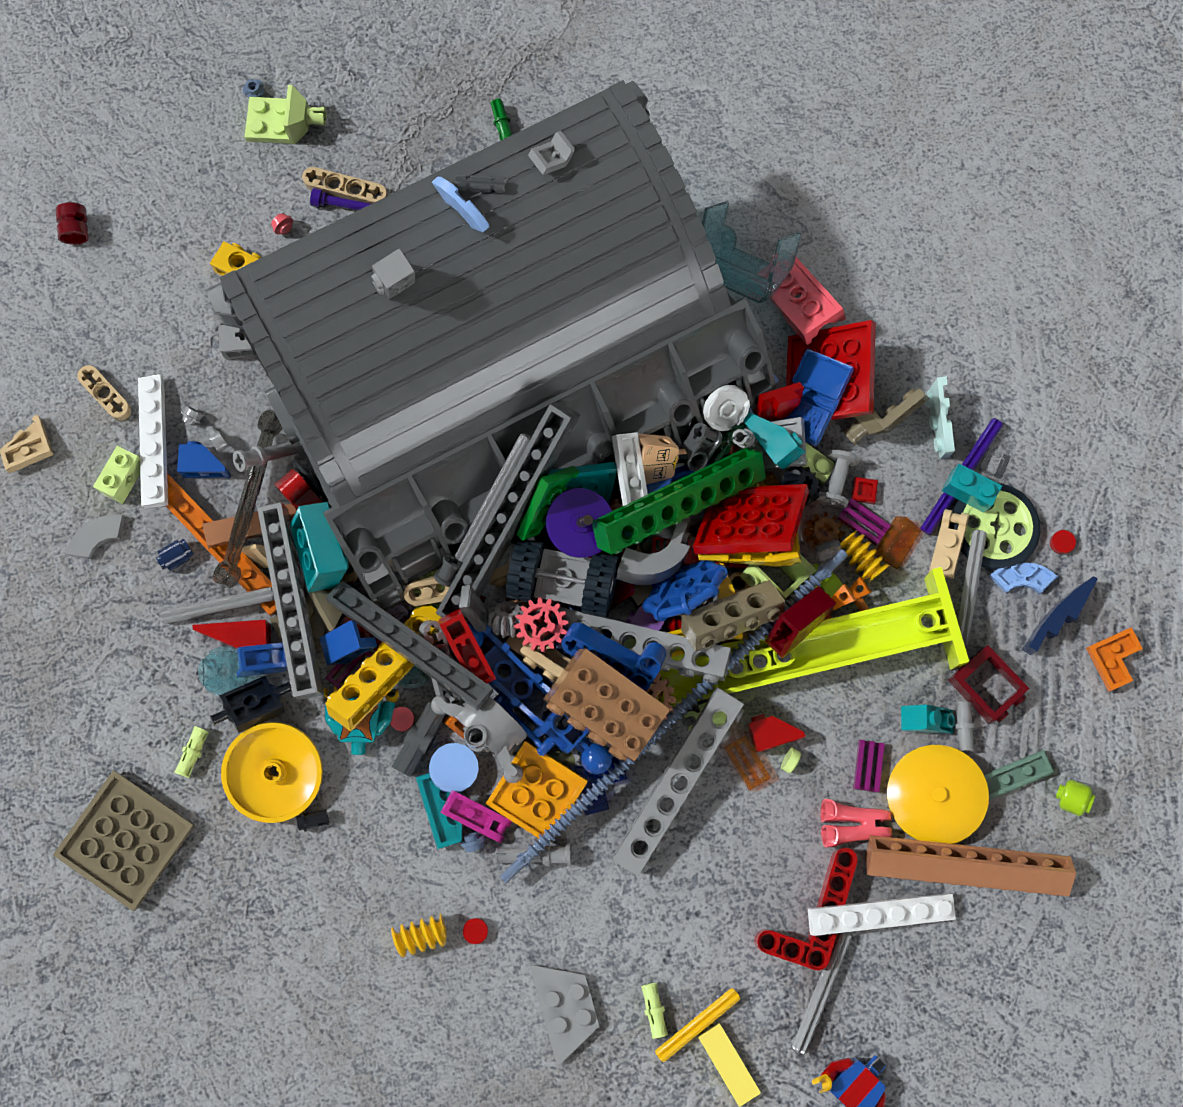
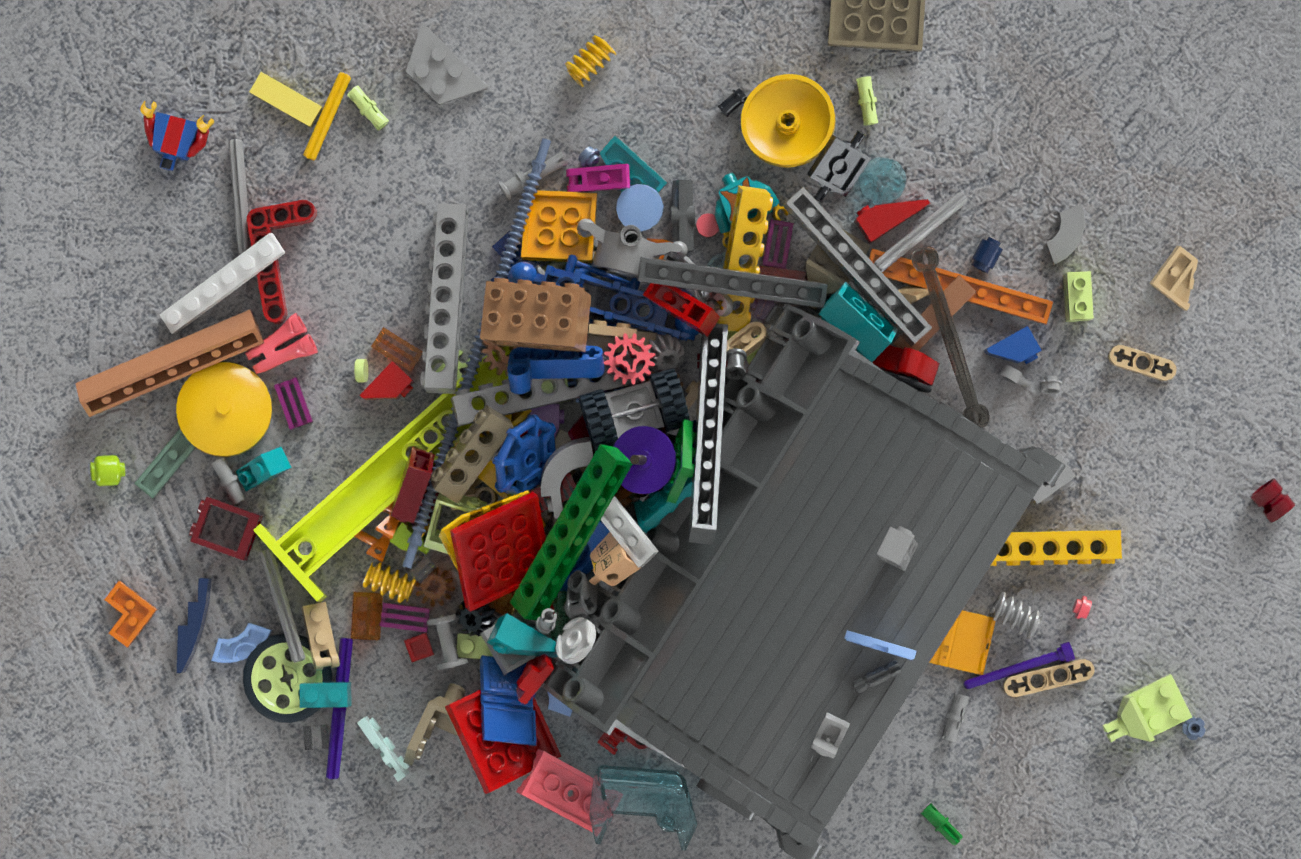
camera: 150 degrees right, 10 degrees up
(152, 442) = (1068, 342): white plate -> none
(259, 456) = (961, 376): light grey pin -> none
(261, 660) = (852, 206): blue panel -> none
(345, 644) = (789, 256): blue panel -> none
(473, 608) = (694, 341): dark grey tile -> none
(475, 931) = (547, 89): red tile -> none
(493, 496) = (728, 439): light grey axle -> none
(1062, 542) = (221, 695): red tile -> none

